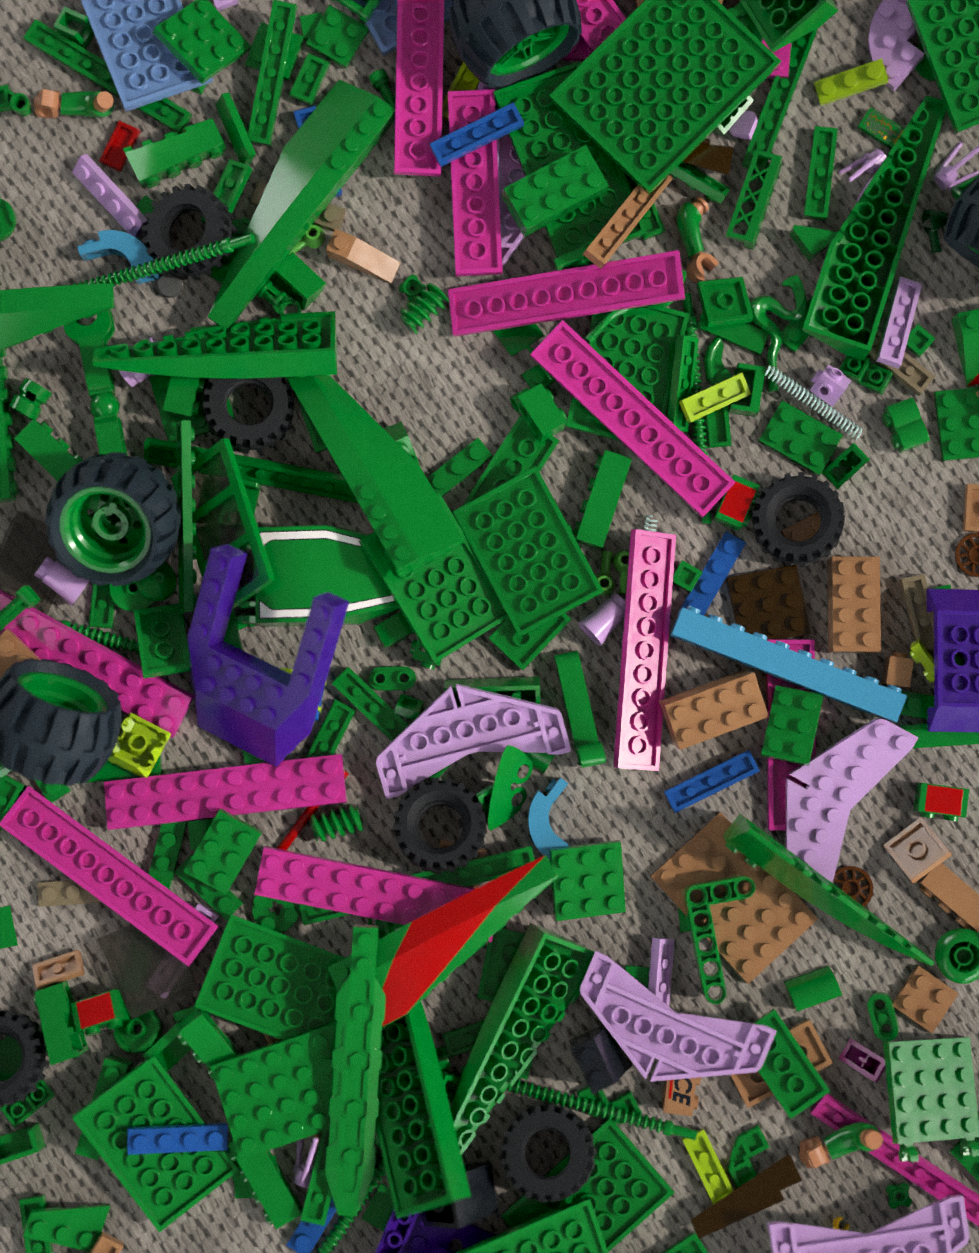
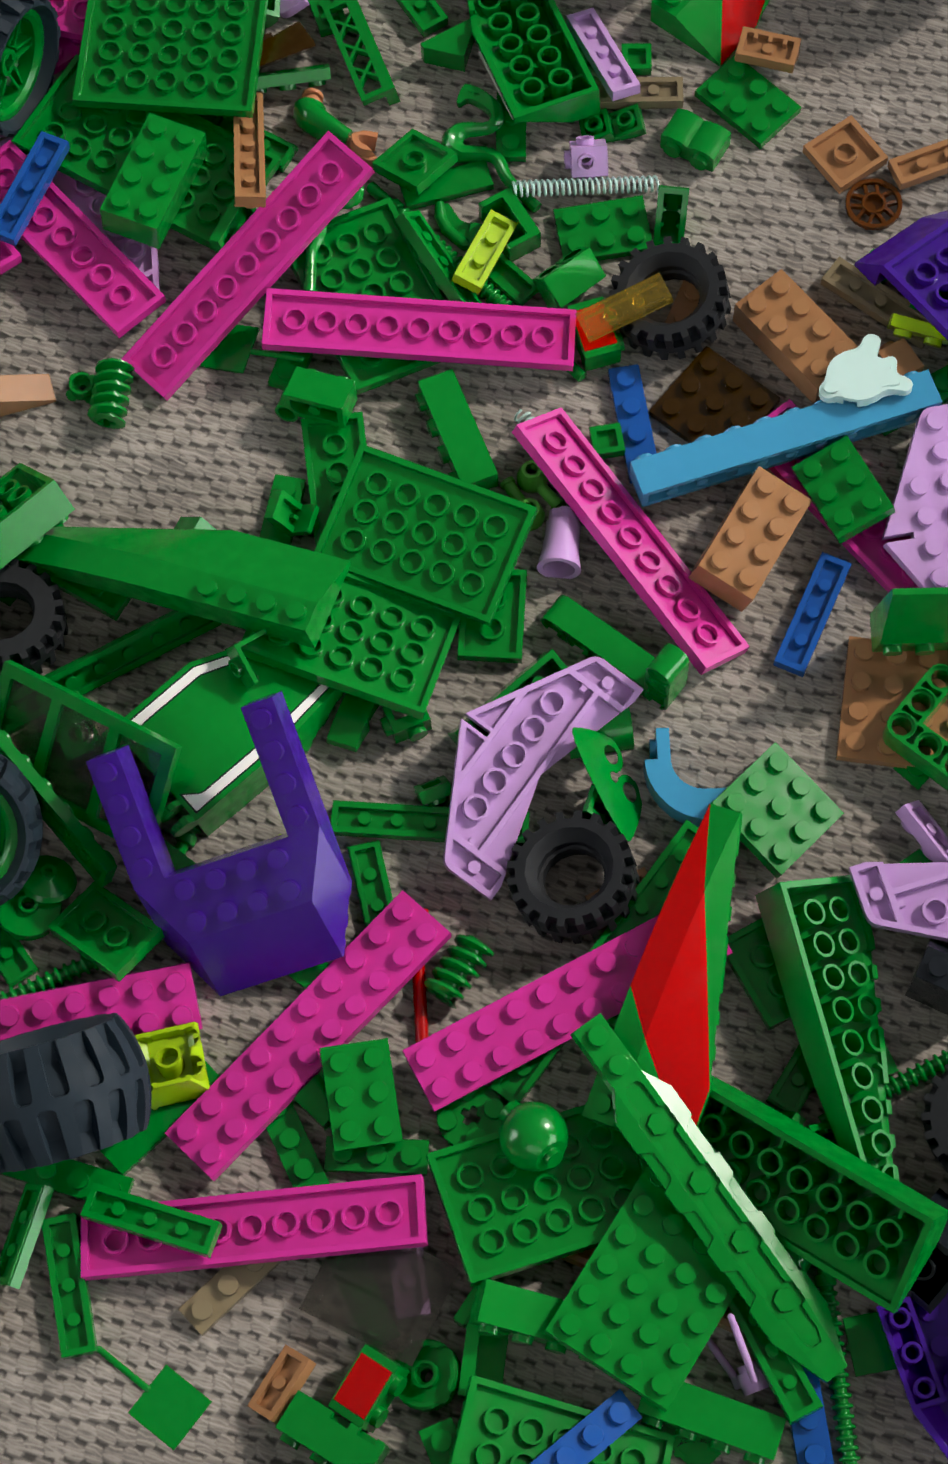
camera: 35 degrees left, 15 degrees down
(56, 827) = (151, 1220): none -> green plate
(293, 955) = (532, 1135): none -> green brick
(361, 541) = (238, 663): none -> green bracket
(392, 678) = (391, 777): green plate -> none
(463, 474) = (290, 515): none -> green bracket
(751, 455) = (569, 277): none -> green piece
(762, 506) = (624, 307): none -> clear yellow tile
(863, 668) = (863, 376): none -> light aqua tile

